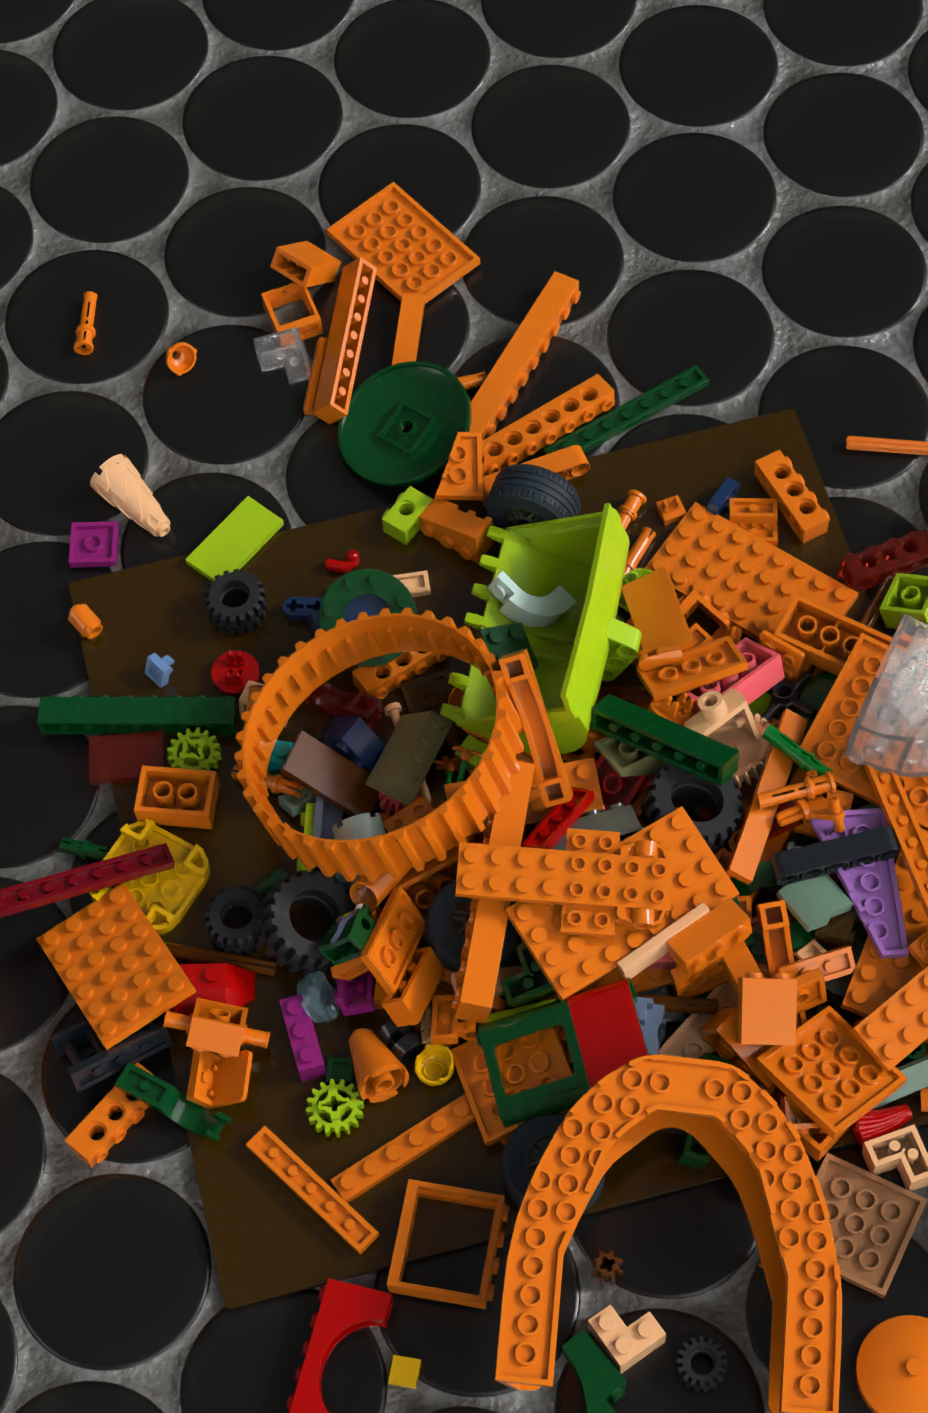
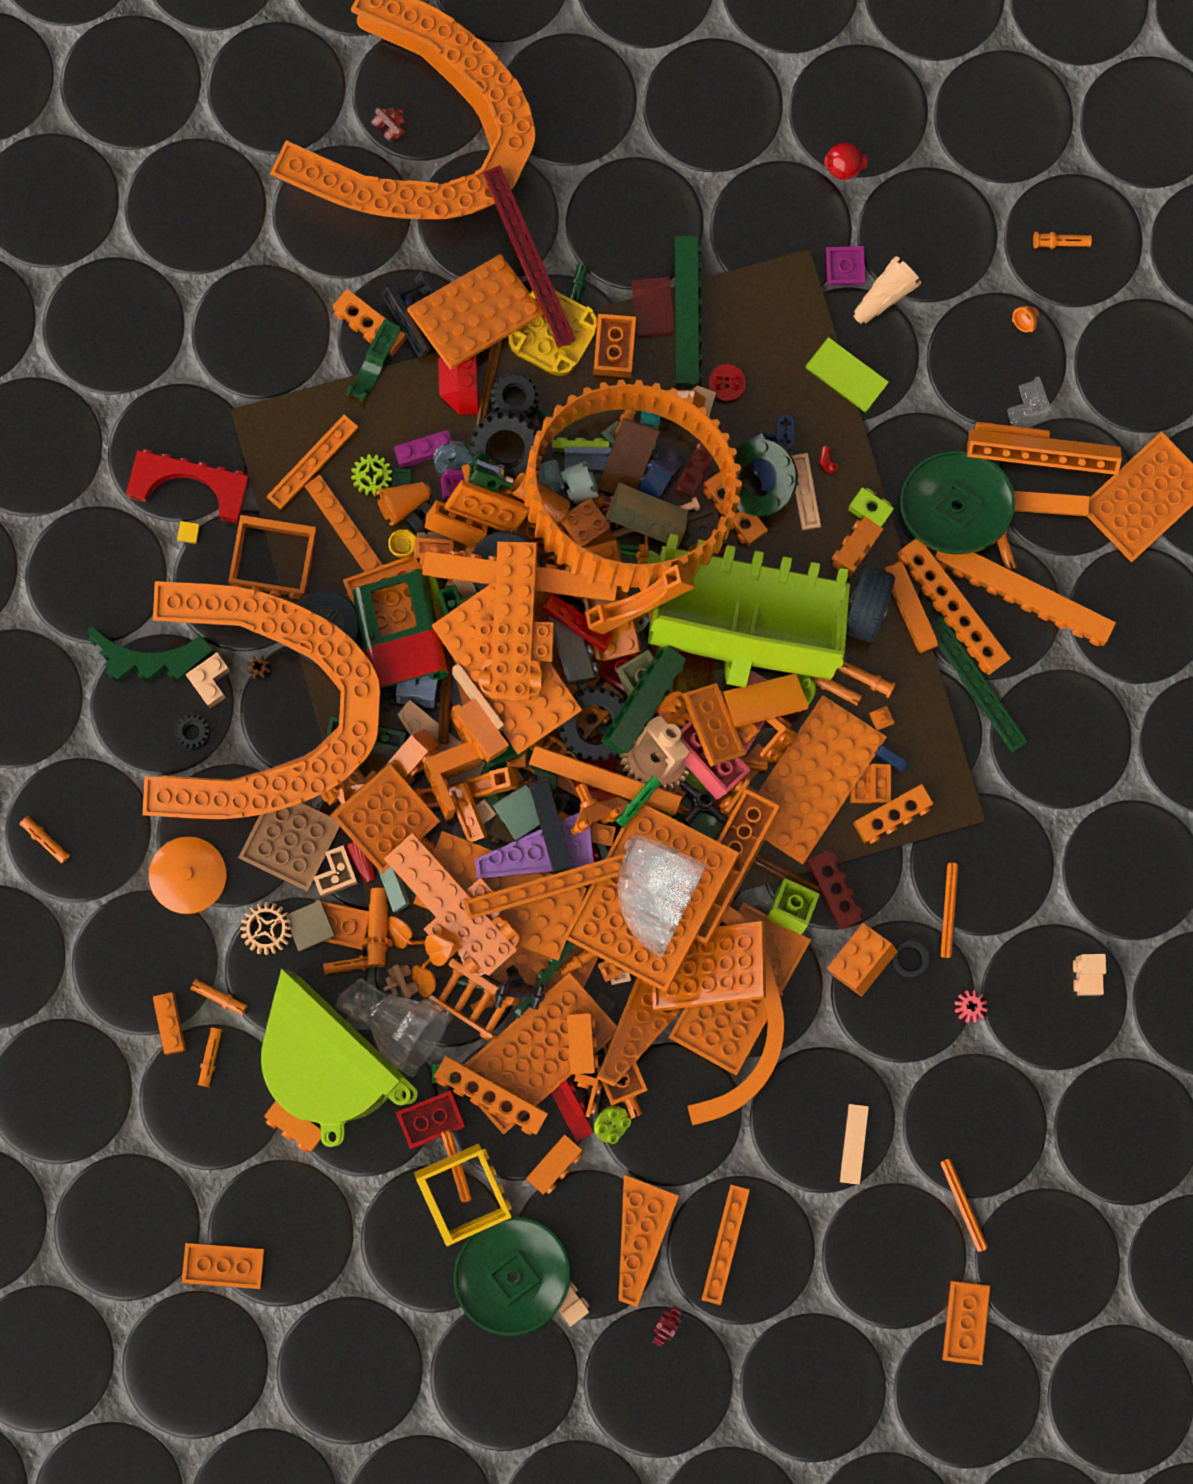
camera: 80 degrees right, 20 degrees up
(85, 621) = (770, 264): orange brick -> none
(159, 669) = (727, 324): medium blue tile -> none
(198, 744) = (648, 361): lime gear -> none
(217, 1028) = (425, 386): orange brick -> none
(218, 1079) = (392, 391): orange bracket -> none
(233, 586) = (792, 364): black tyre -> none
(305, 264) = (1117, 414): orange brick -> none
(307, 326) = (1056, 415): orange window -> none
(463, 471) = (905, 549): orange wing -> none
(506, 640) = (733, 585): dark green plate -> none
(529, 609) = (777, 620): light aqua arch -> none
(659, 656) = (722, 702): orange bar -> none
(767, 1009) = (420, 768): orange brick -> none
(807, 788) = (604, 806): orange pin -> none

